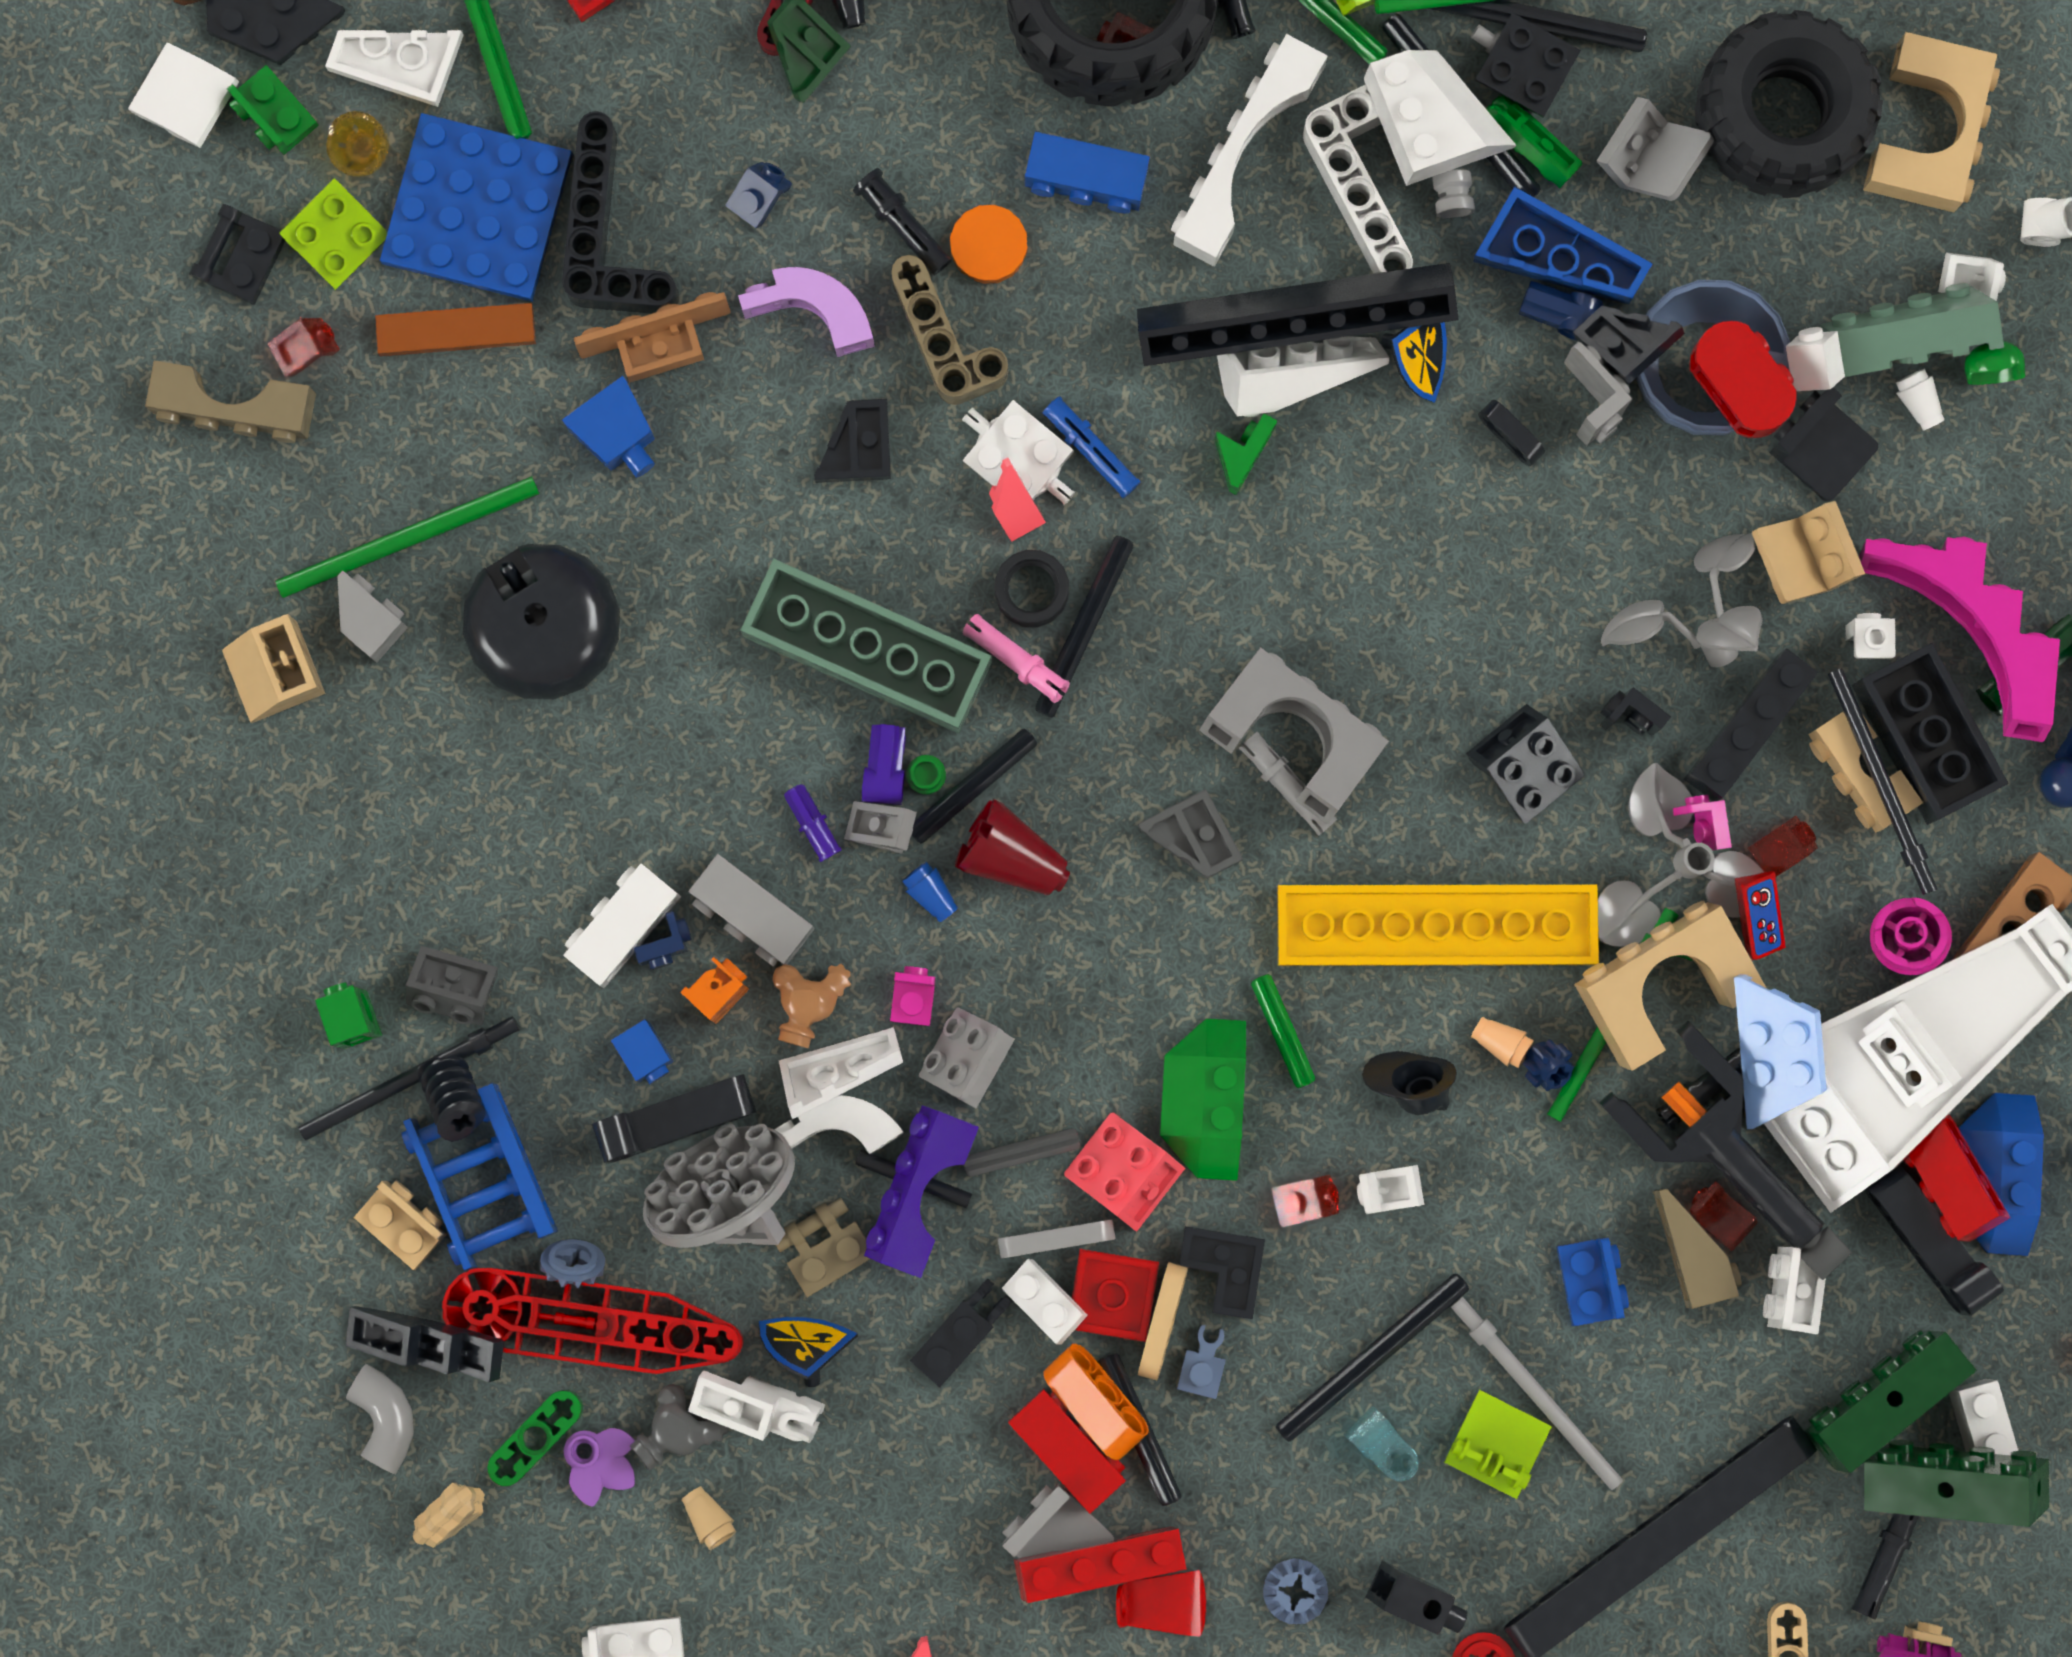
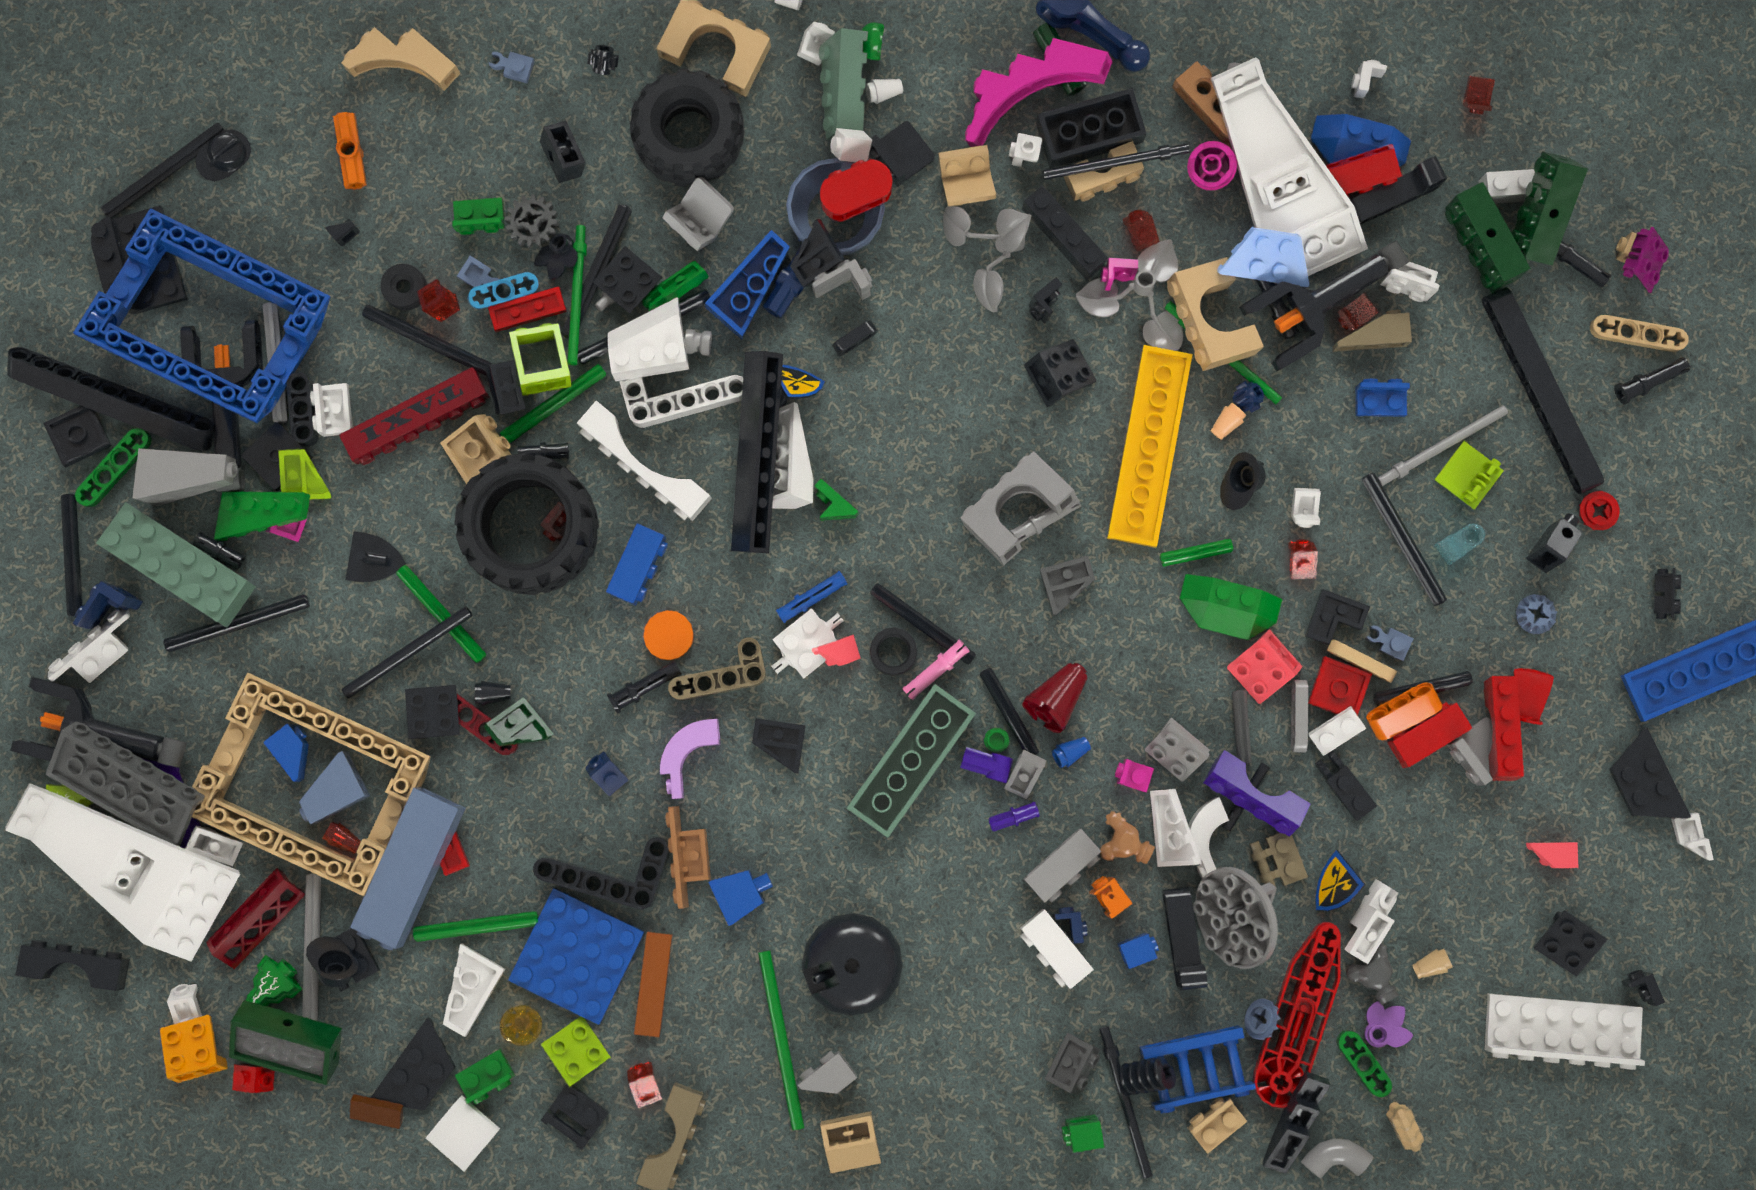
camera: 80 degrees left, 0 degrees up
(1760, 914) = (1180, 252): slope -> none

